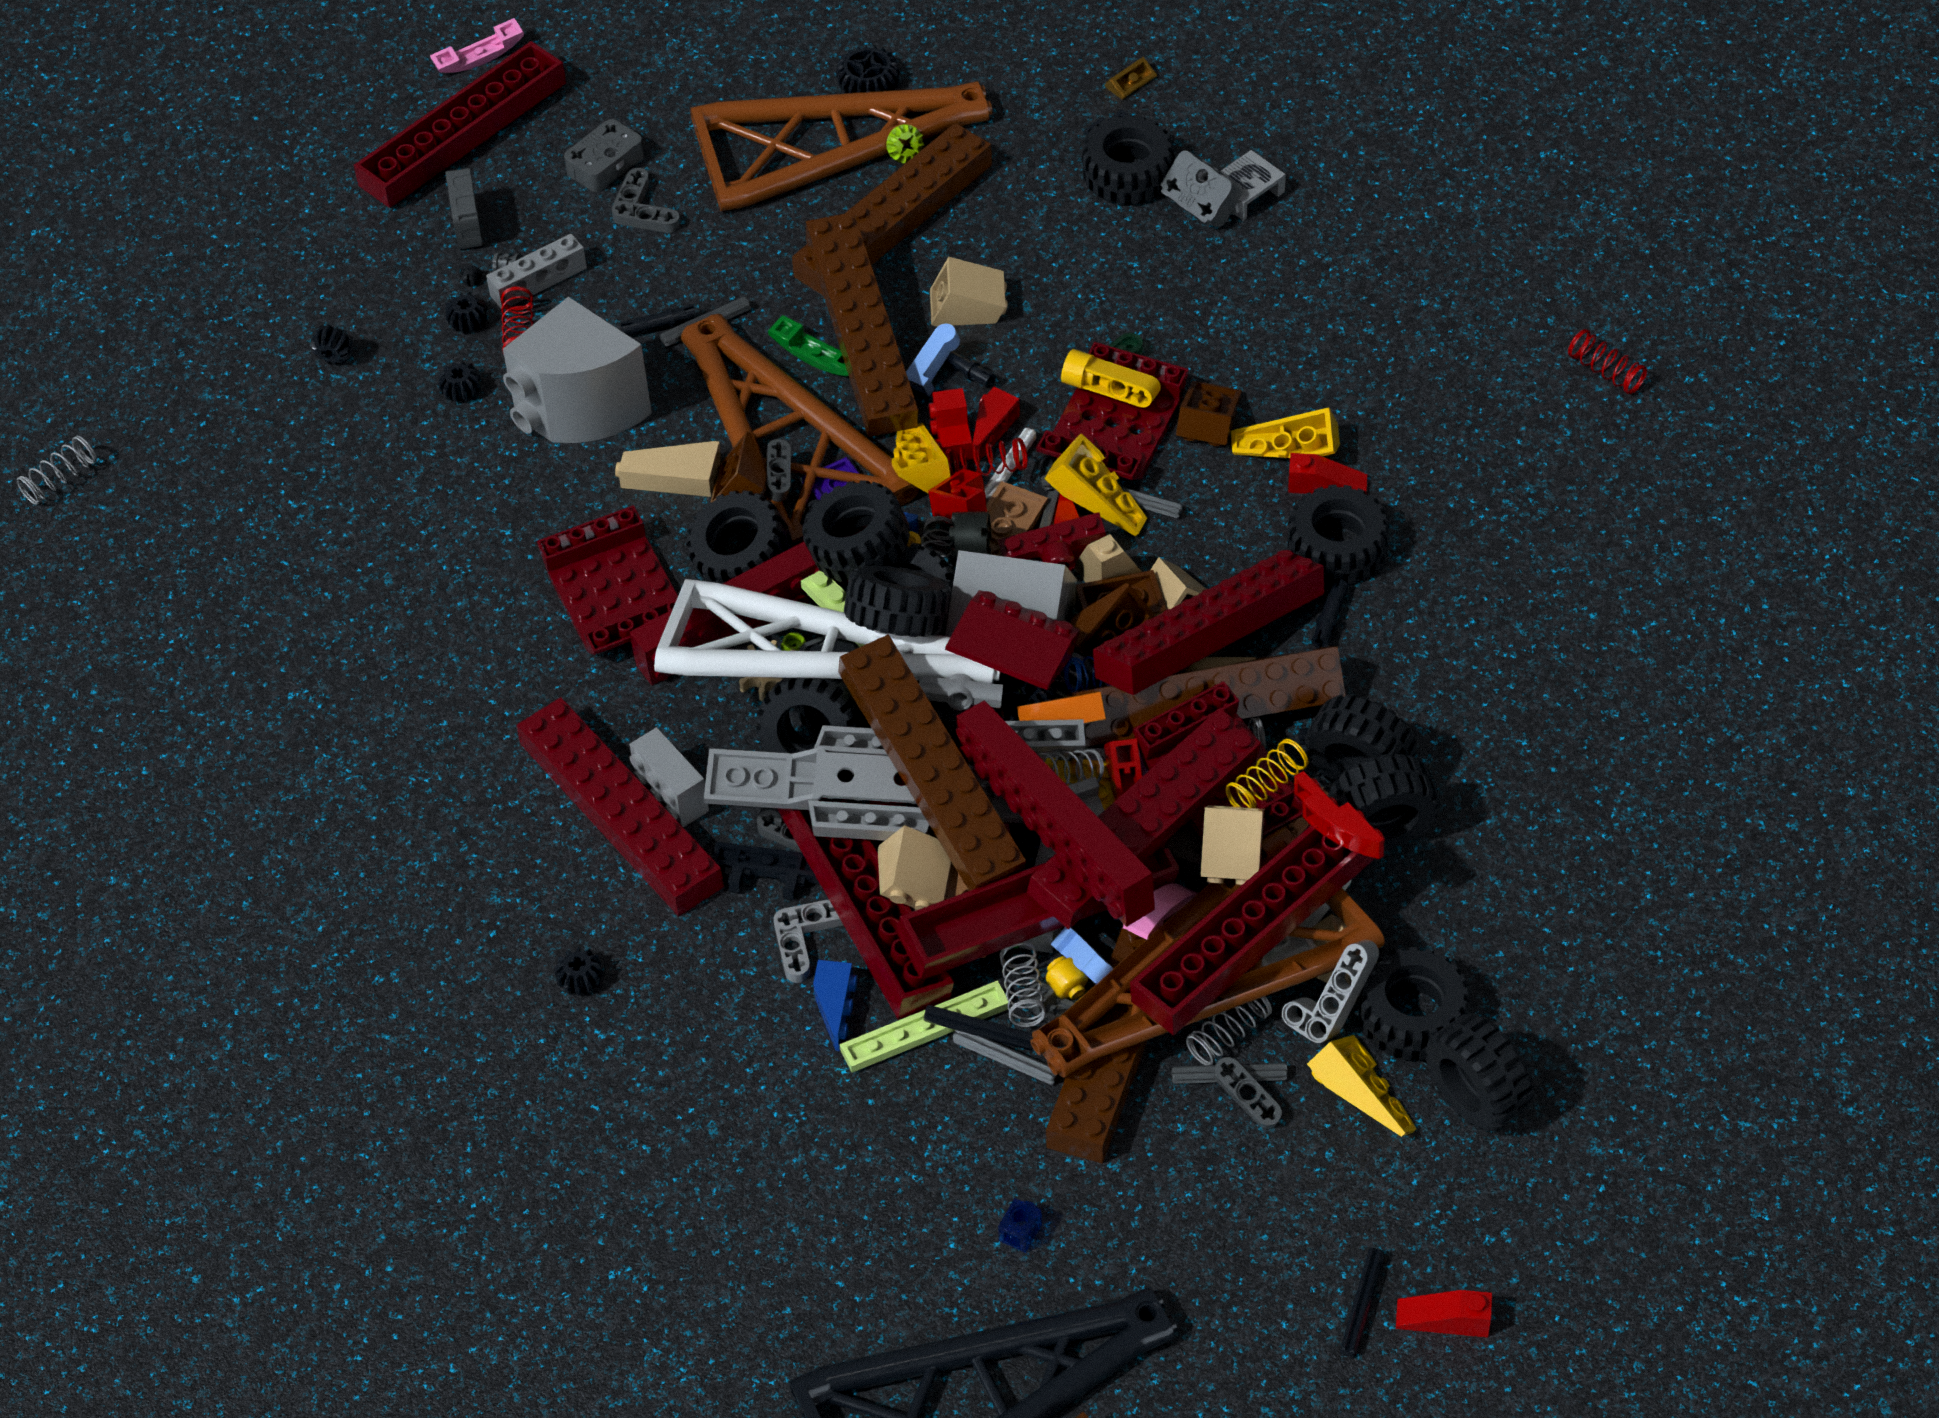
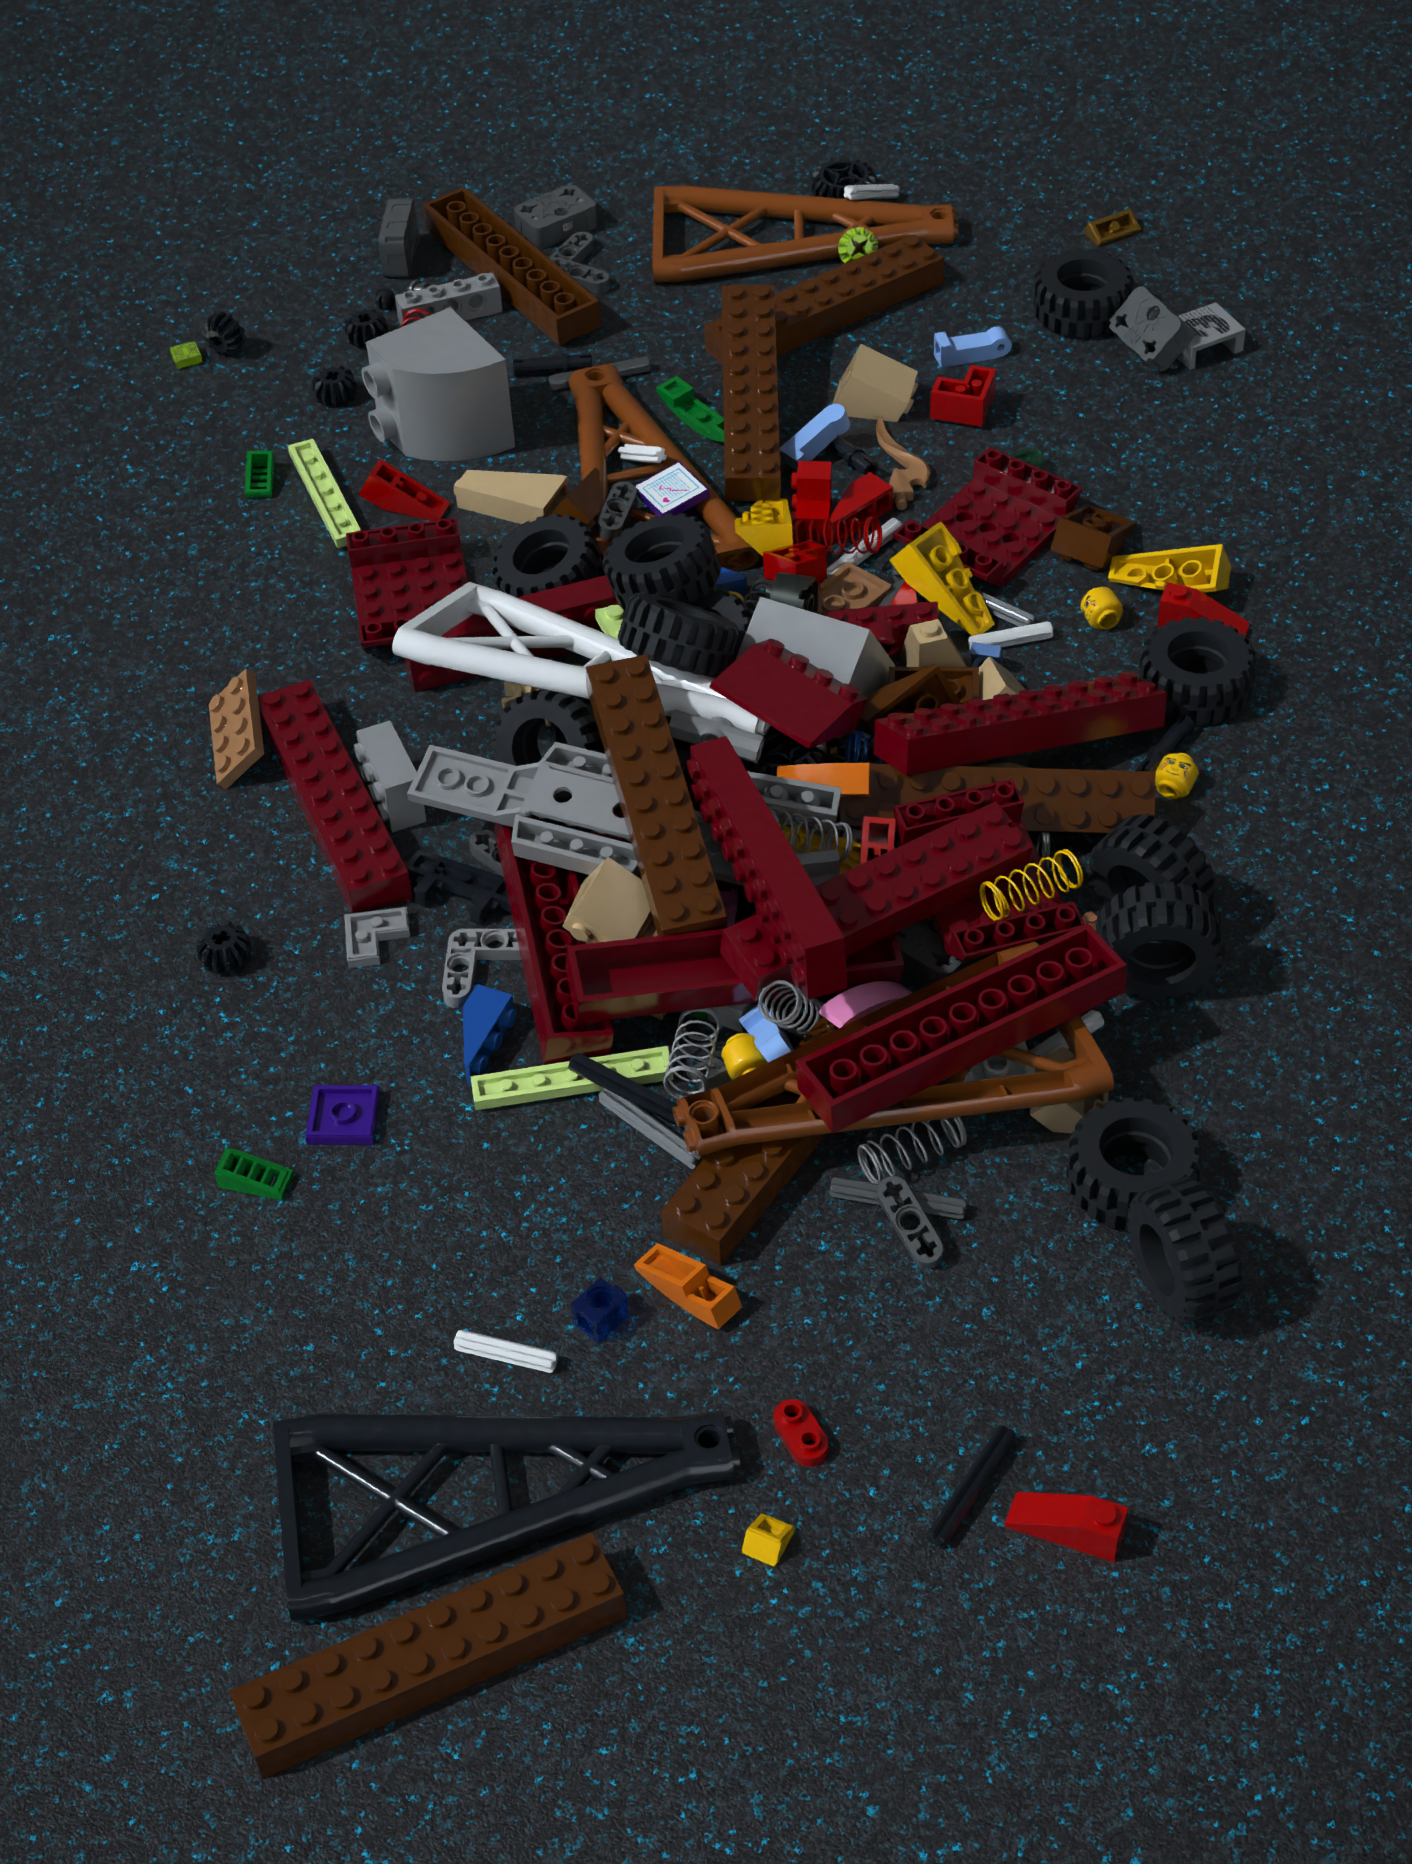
camera: 15 degrees right, 5 degrees down
(299, 371) = (186, 354): none -> lime tile
(418, 473) = (260, 459): none -> green slope
(459, 124) = (426, 169): dark red brick -> none
(481, 52) = (472, 118): bright pink slope -> none
(493, 497) = (323, 490): none -> yellowish green plate
(508, 758) = (236, 728): none -> medium nougat plate
(567, 486) = (401, 494): none -> red slope
(569, 208) = (523, 272): none -> reddish brown brick
(684, 1182) = (233, 1166): none -> green slope
(696, 929) = (368, 928): none -> light grey tile
(740, 1101) = (343, 1115): none -> dark purple tile
(779, 404) = (642, 453): none -> white axle
(821, 440) = (672, 491): none -> tile
(898, 79) = (867, 192): none -> white axle
(953, 1277) = (505, 1351): none -> white axle
(1031, 375) = (901, 480): none -> medium nougat piece
(1040, 233) = (970, 347): none -> light blue leg
(1053, 294) = (966, 399): none -> red brick
(1085, 1186) = (689, 1285): none -> orange slope
(1086, 936) = (795, 1010): none -> light grey piece
(1104, 377) = (974, 473): yellow beam -> none
(1150, 552) = (980, 652): none -> medium blue tile
(1165, 528) = (1015, 635): none -> white axle
(1212, 1288) = (799, 1429): none -> red plate
(1215, 1383) = (767, 1539): none -> yellow slope
(1231, 843) = (964, 939): tan slope -> none
(1237, 486) = (1101, 608): none -> yellow head
(1336, 987) = (1073, 1098): light grey beam -> none
(1339, 824) = (1088, 937): red slope -> none
(1348, 637) = (1176, 775): none -> yellow head
(1349, 1072) = (1038, 1226): yellow wedge -> none

